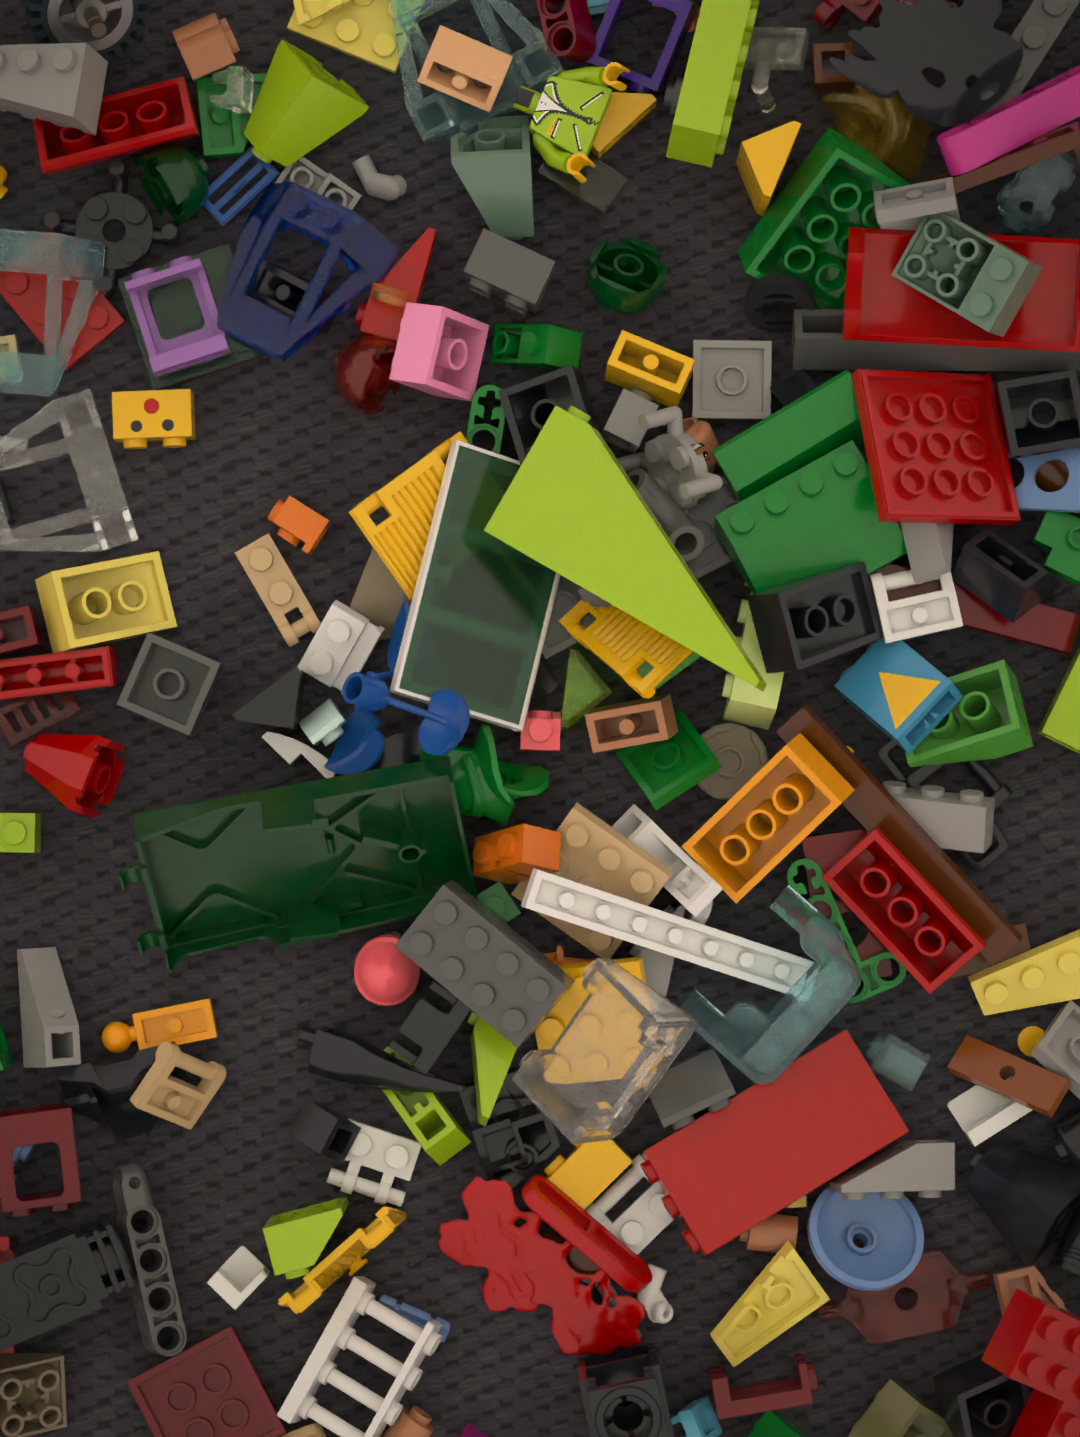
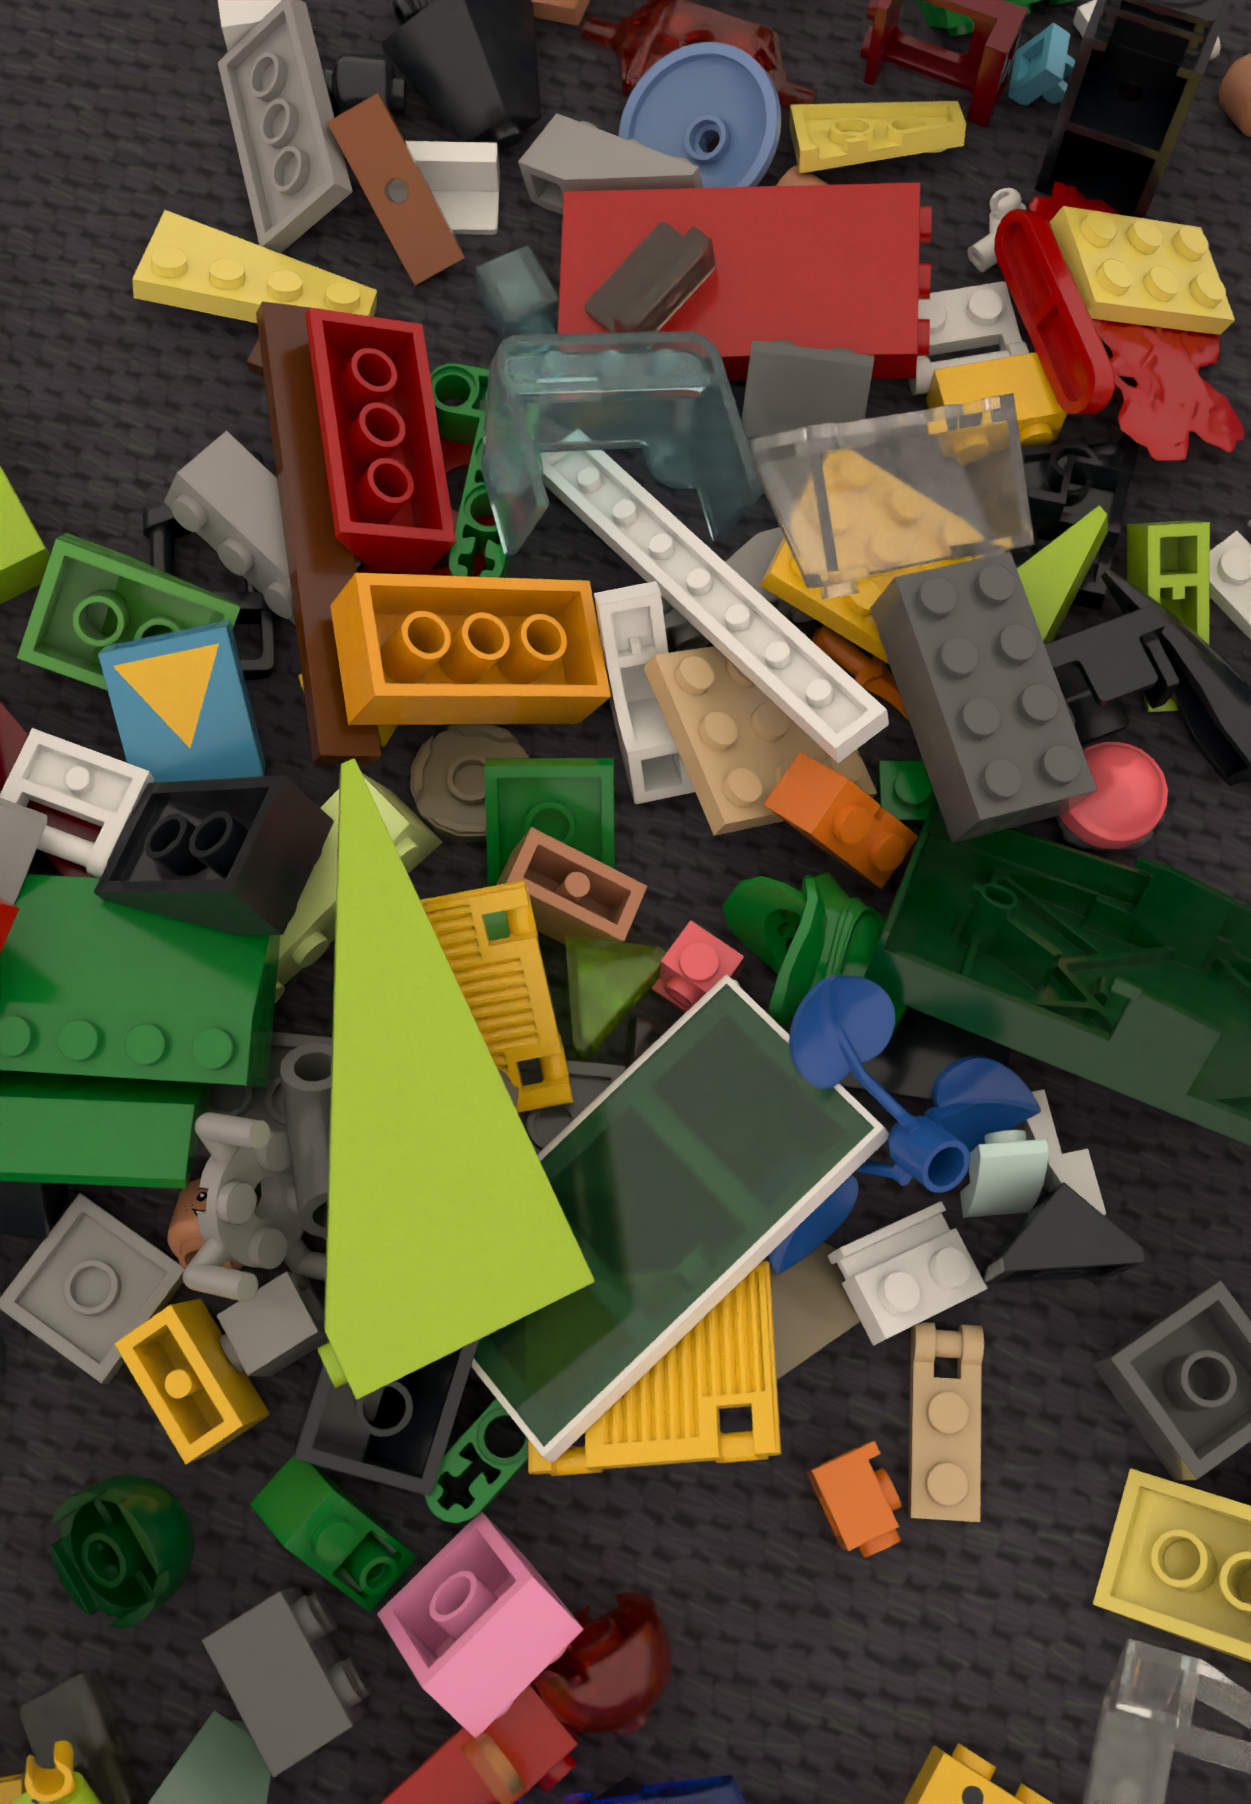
camera: 150 degrees left, 15 degrees down
(555, 1308) = (1143, 271): none -> light yellow plate
(819, 1099) = (653, 281): none -> clear smoke panel
(1028, 1038) = (342, 238): yellow piece -> none

